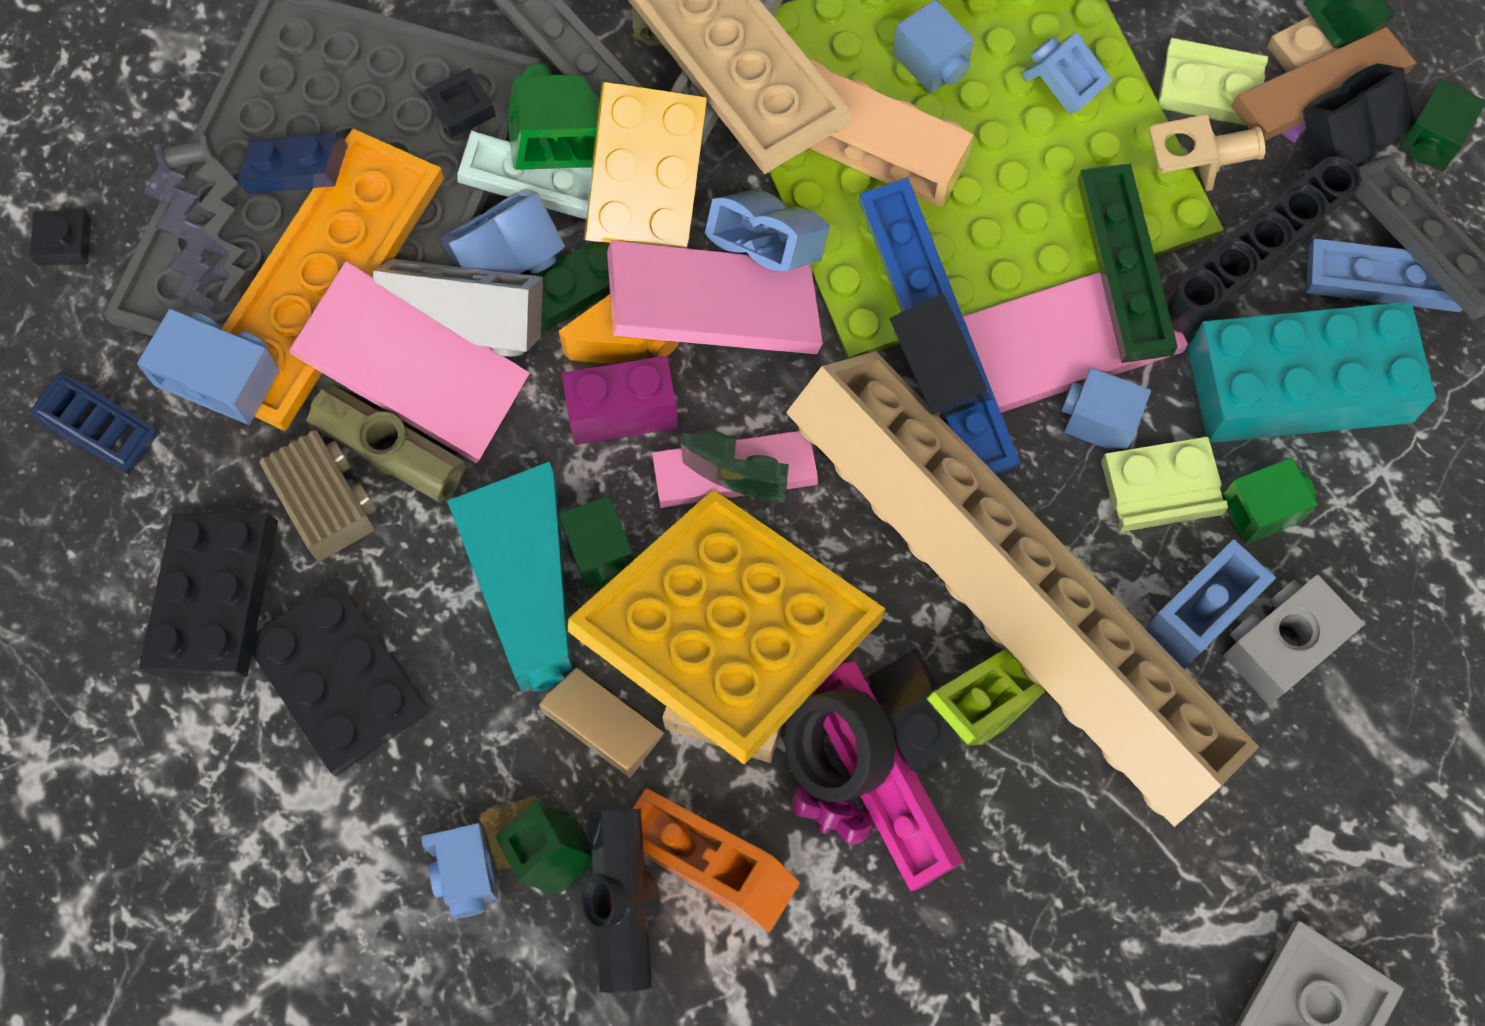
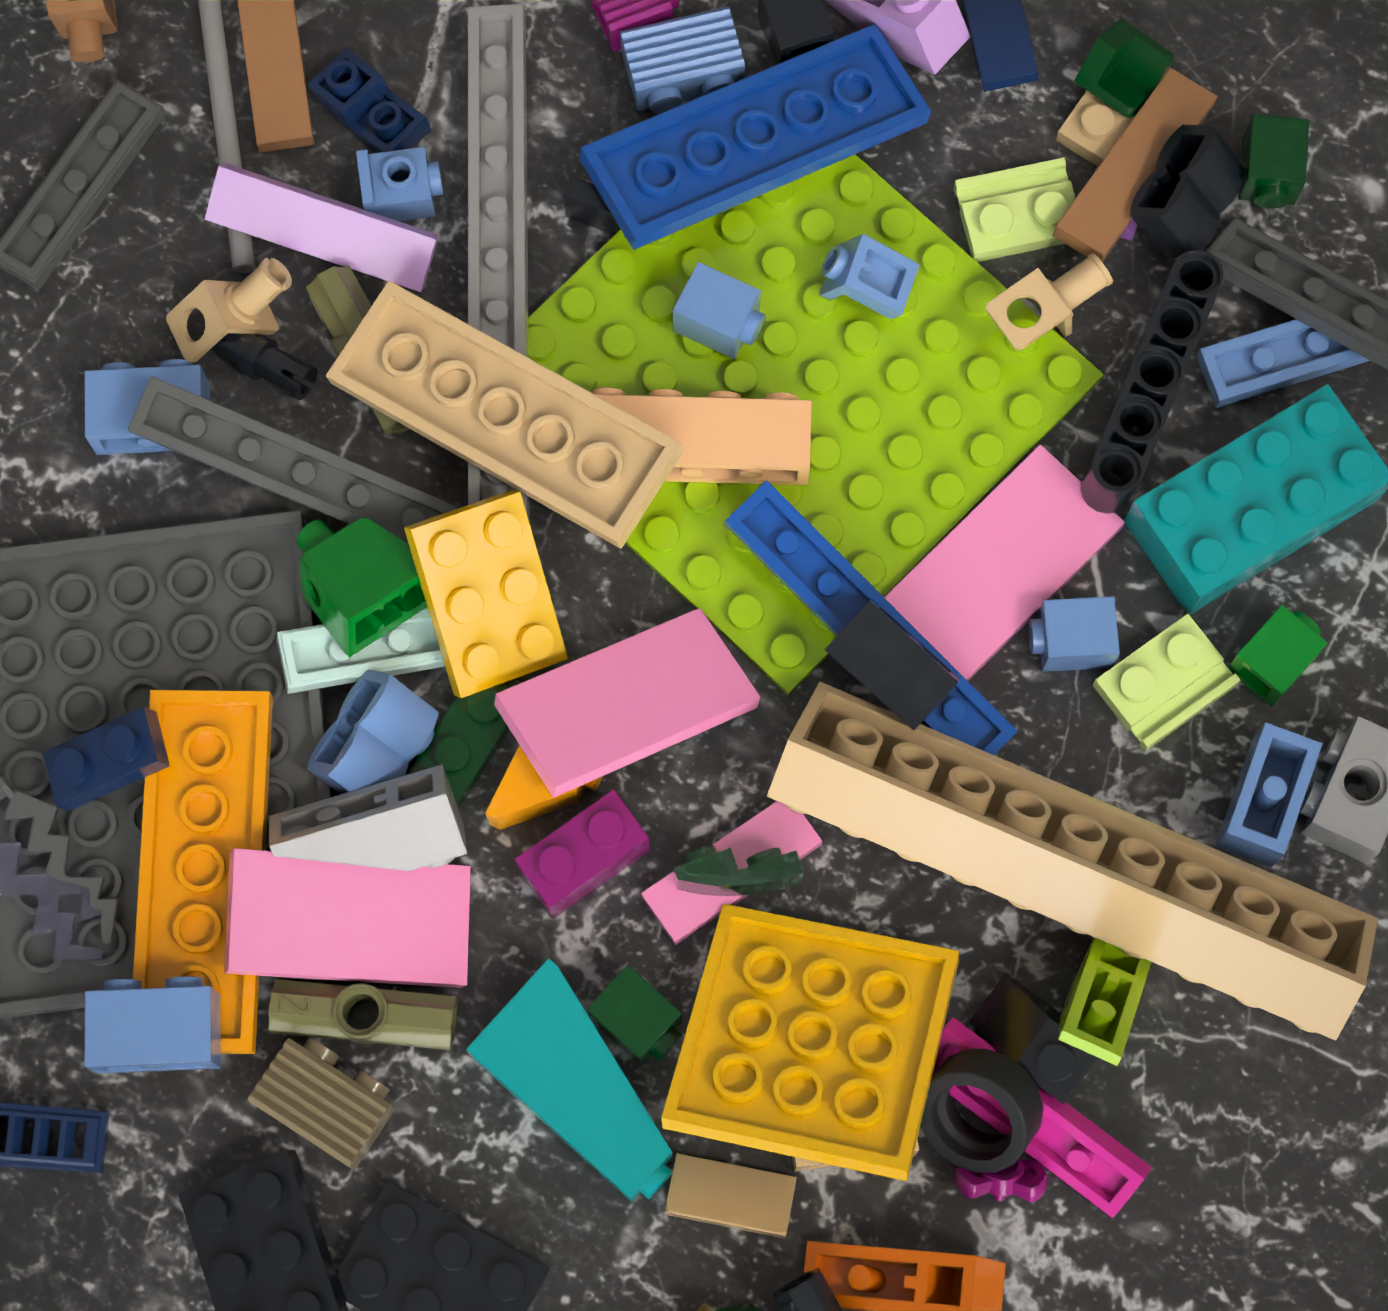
camera: 25 degrees left, 5 degrees up
(460, 102) = (248, 605): black plate -> none
(767, 230) = (643, 599): medium blue brick -> none
(1127, 263) = (1026, 465): dark green plate -> none

